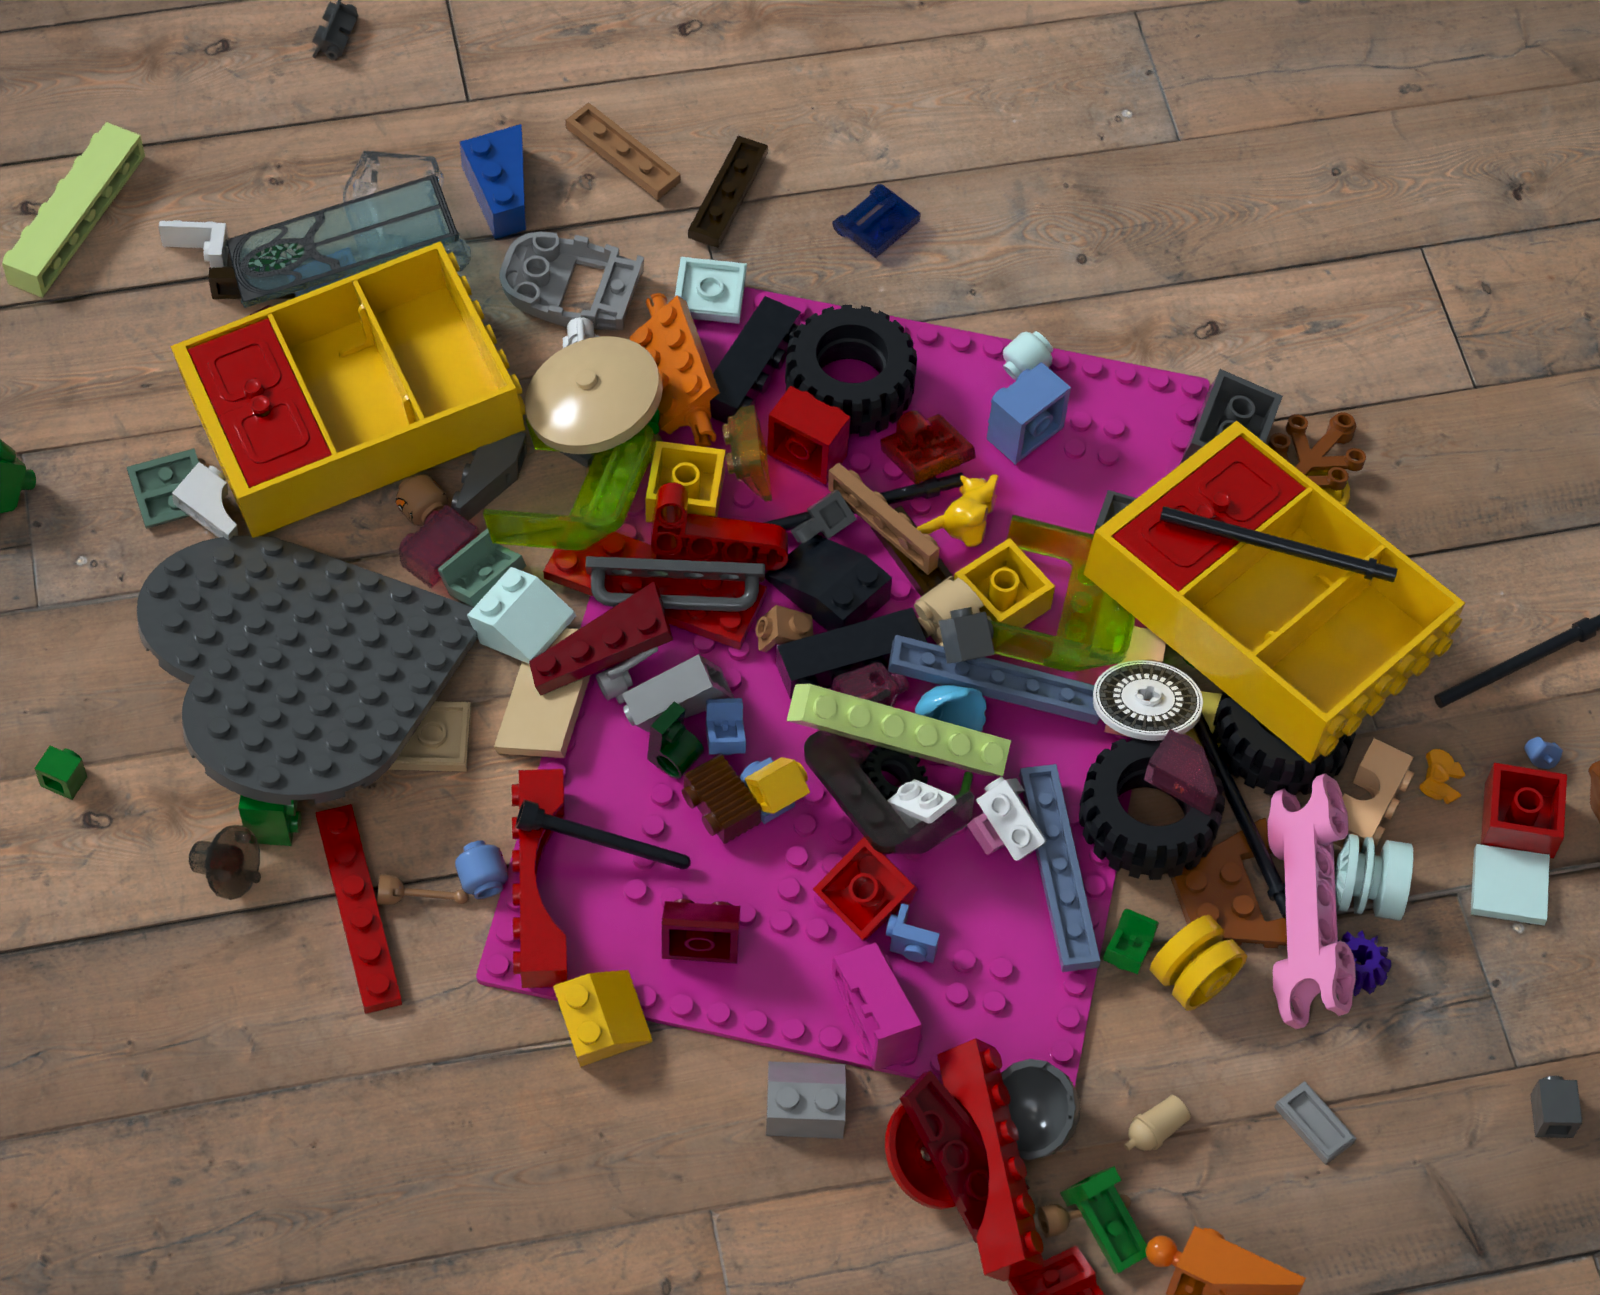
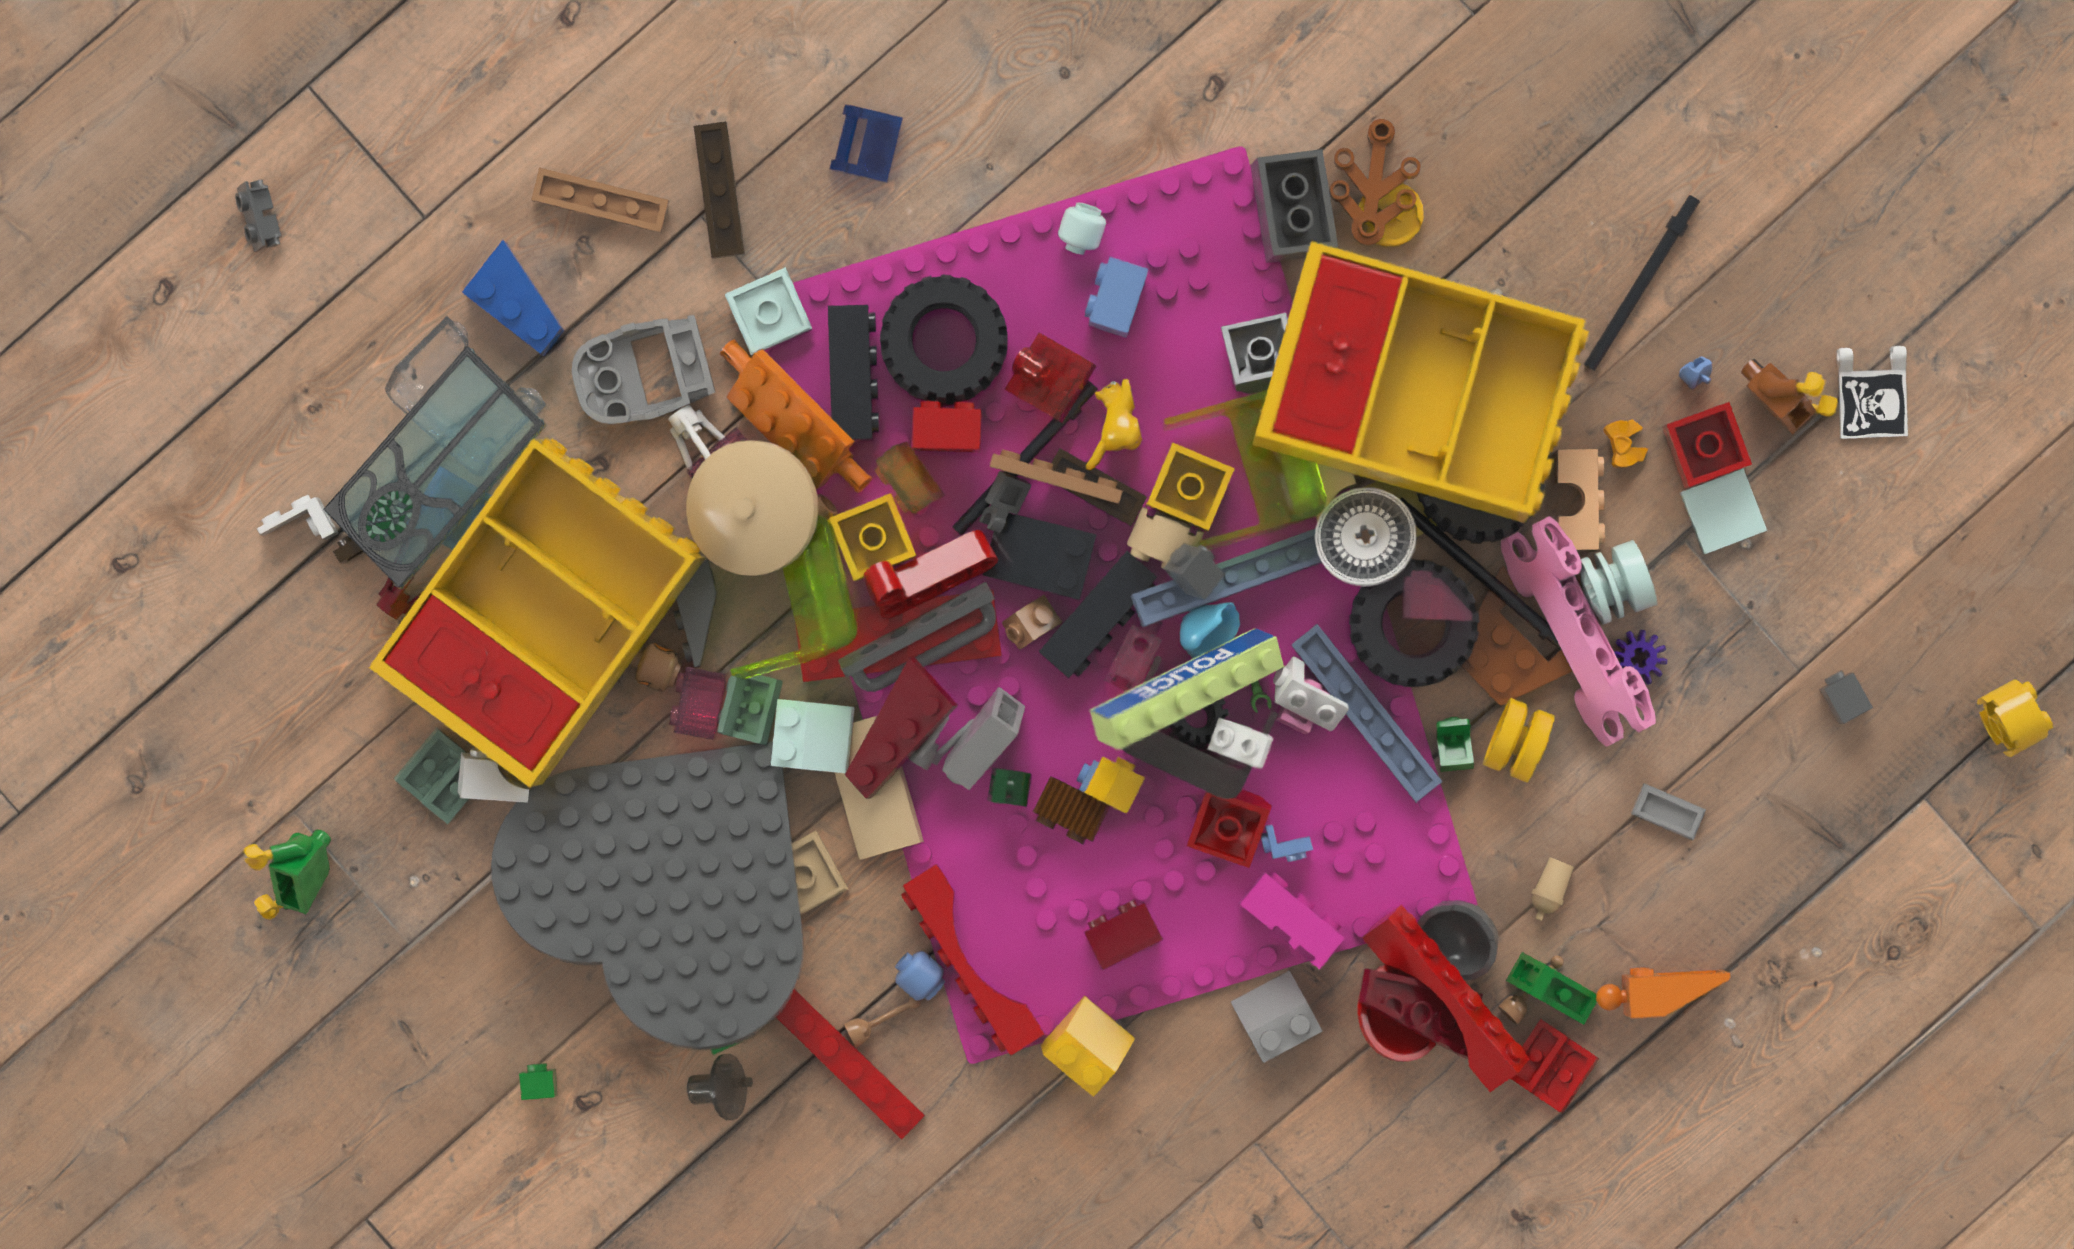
camera: 25 degrees left, 30 degrees up
(73, 209) = (168, 550): yellowish green brick -> none
(533, 817) = (942, 925): black piece -> none
(725, 726) = (1038, 745): medium blue bracket -> none
(1367, 568) = (1494, 339): black bar -> none

